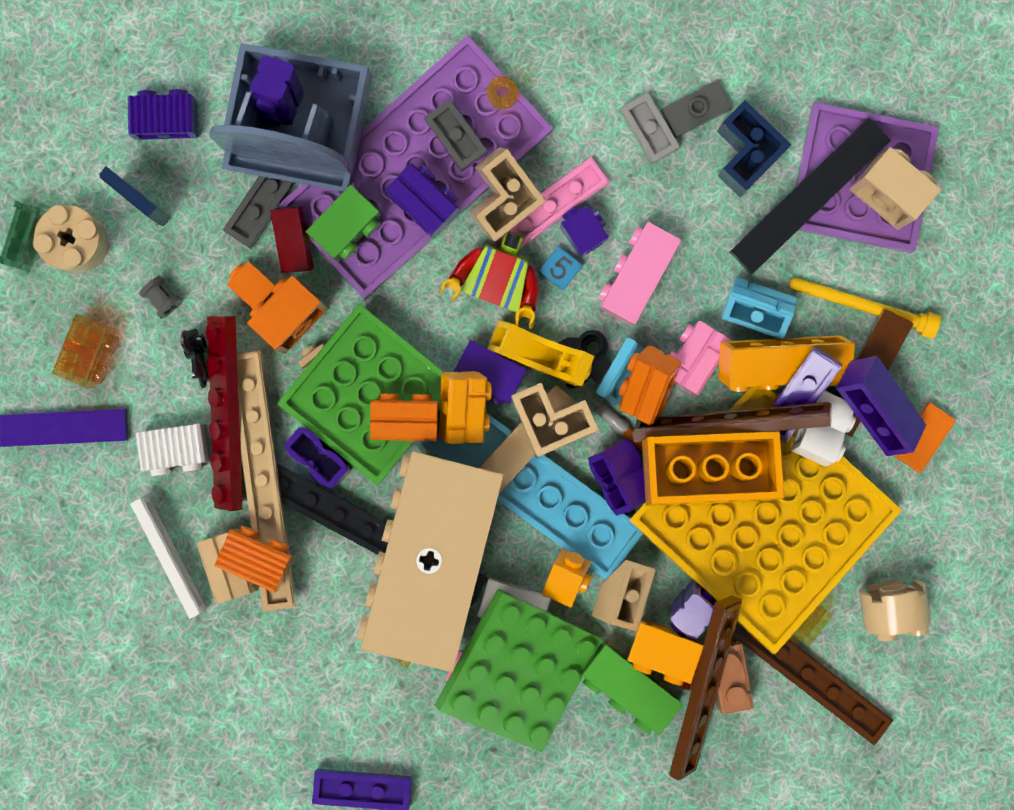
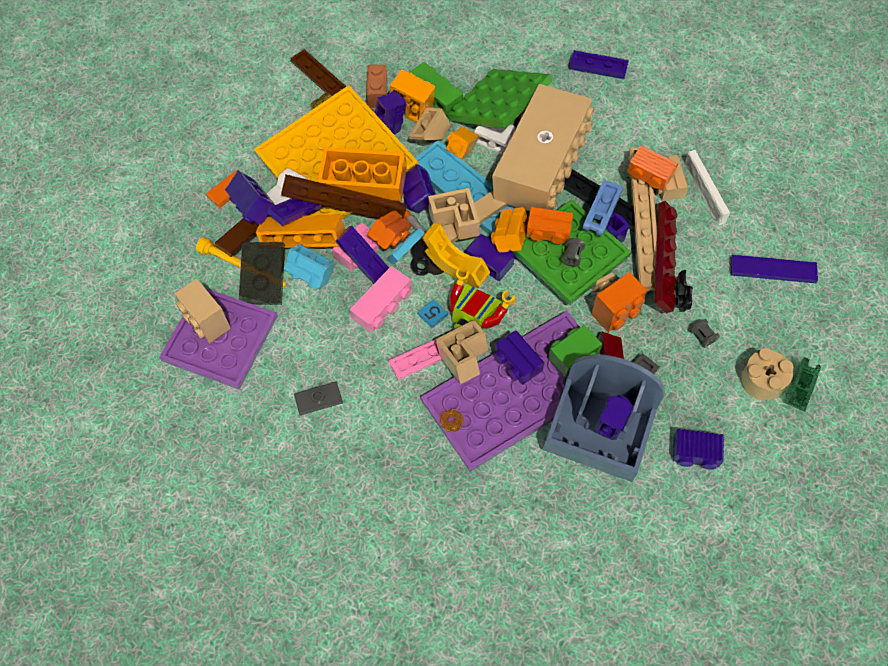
camera: 170 degrees left, 25 degrees down
(86, 352) = (757, 307): clear orange brick -> none
(134, 196) = (720, 390): dark blue tile -> none
(173, 448) = (701, 244): white brick -> none
(250, 284) = (641, 329): orange brick -> none
(325, 465) = (603, 207): none -> medium blue plate
(363, 378) = (573, 252): none -> dark grey bush
(455, 135) = (489, 397): dark grey plate -> none
(584, 229) = (412, 330): dark purple brick -> none
(649, 128) = (354, 389): light grey plate -> none
(680, 330) = (362, 254): none -> dark purple plate
(705, 686) = (390, 76): reddish brown tile -> none
(757, 147) = (285, 359): dark blue brick -> none
(810, 196) = (257, 325): black tile -> none
(828, 288) = (262, 273): none -> clear smoke tile
(895, 609) = (273, 101): tan brick -> none

